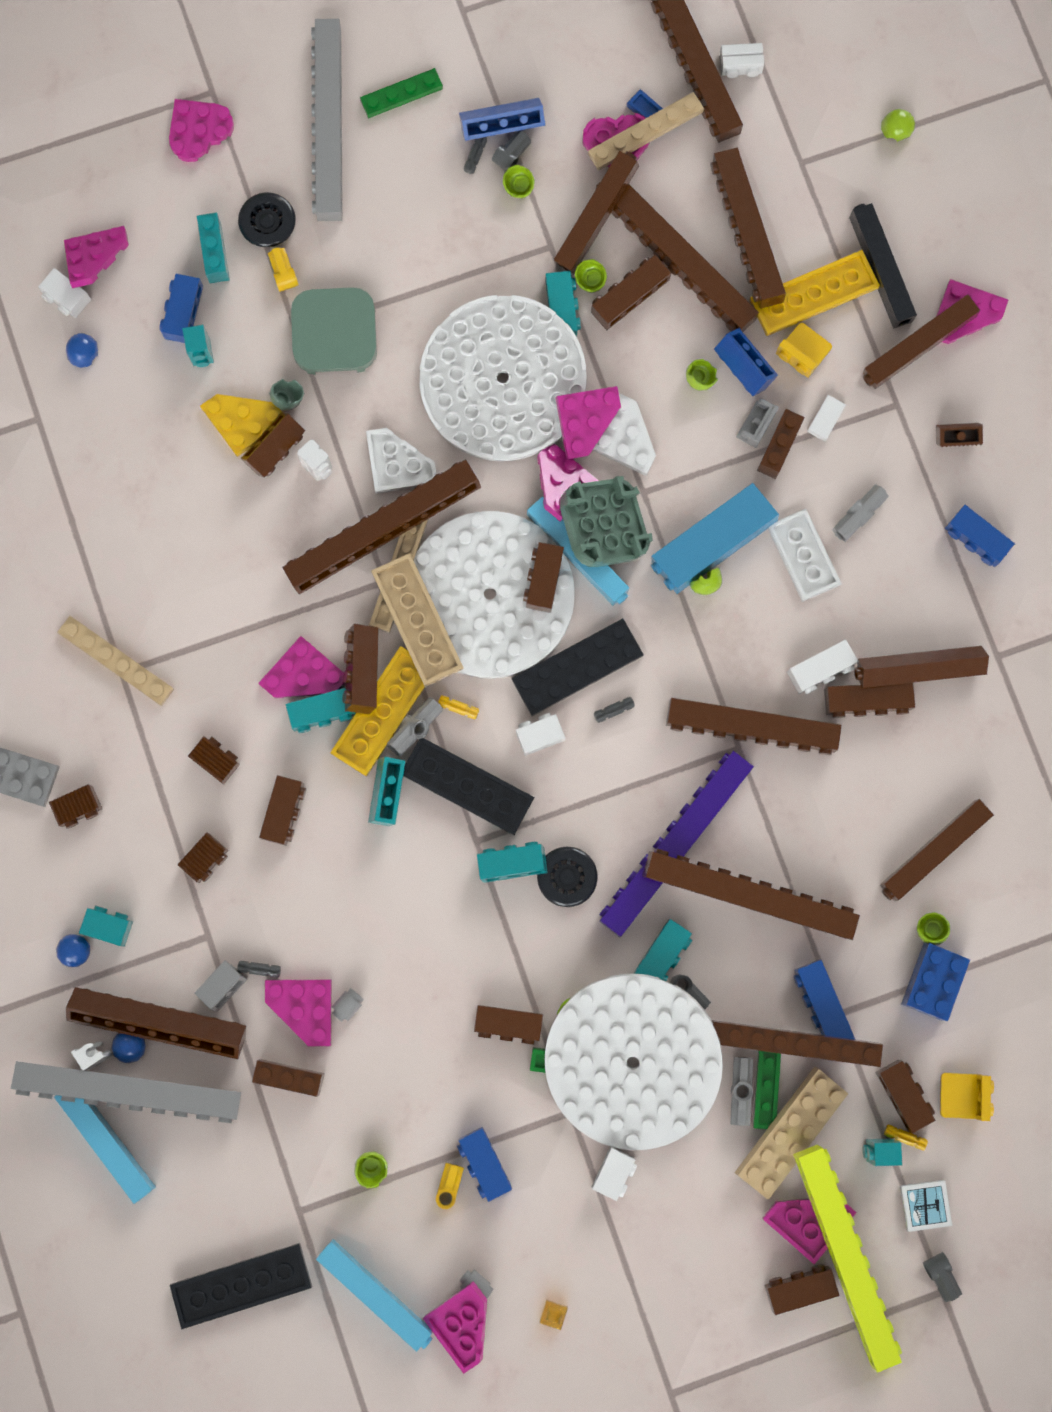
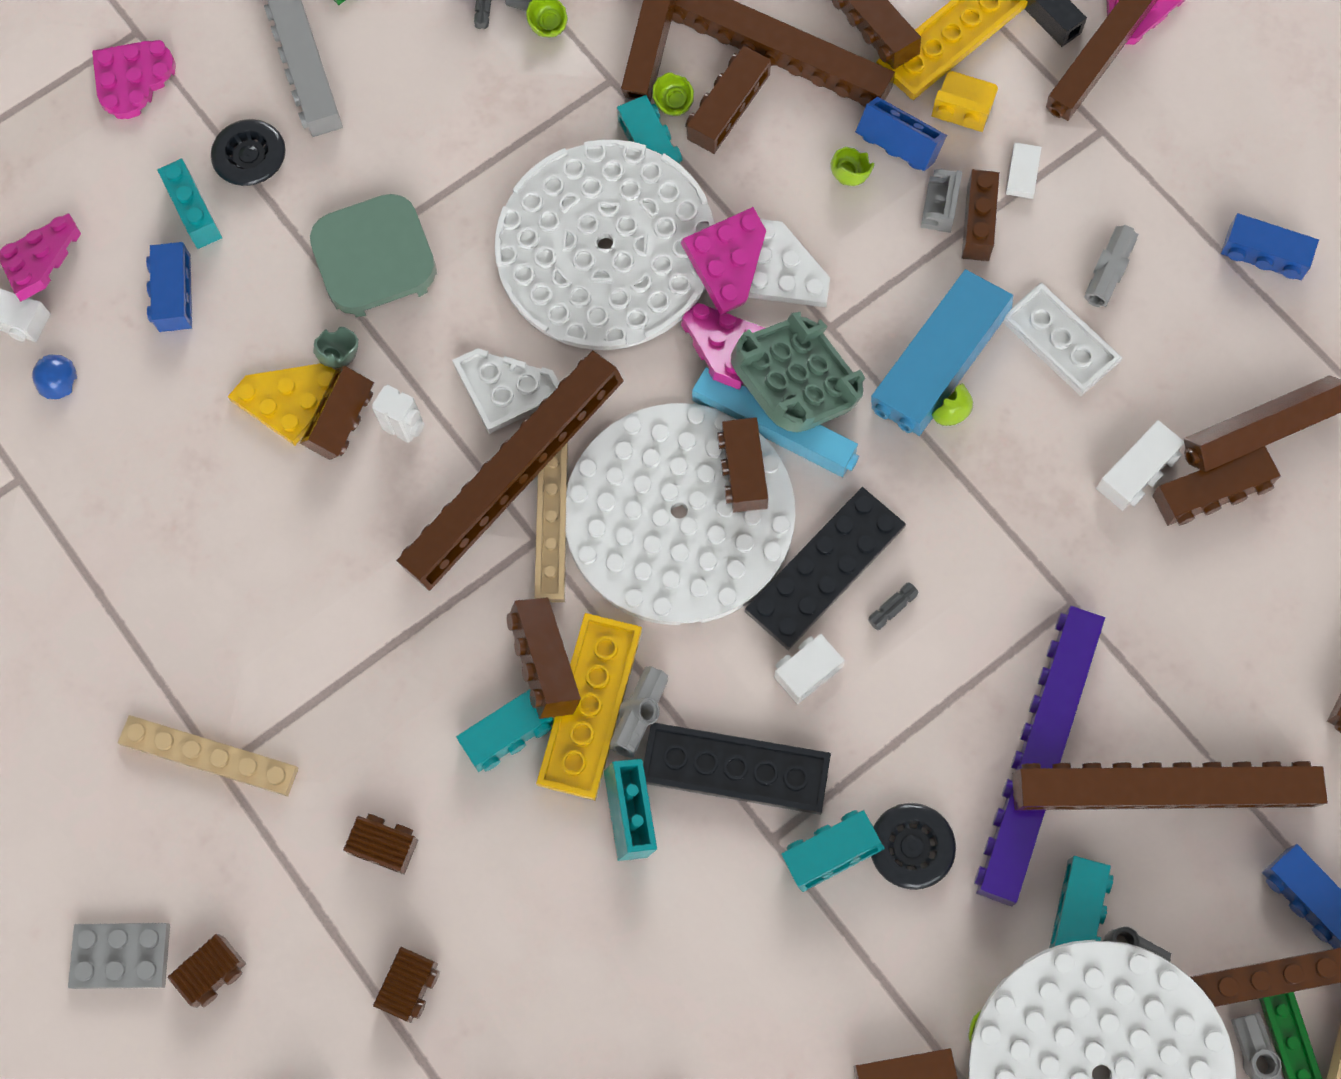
camera: 10 degrees left, 10 degrees down
(198, 345) = (203, 321): teal brick -> none
(282, 810) = (496, 883): reddish brown brick -> none
(283, 273) = (289, 209): yellow piece -> none
(302, 673) = (465, 691): dark pink plate -> none
(417, 619) = (597, 571): tan plate -> none
(458, 707) = (689, 668): yellow axle -> none
(753, 725) = (1082, 567): reddish brown brick -> none
(959, 434) = (1195, 136): reddish brown brick -> none

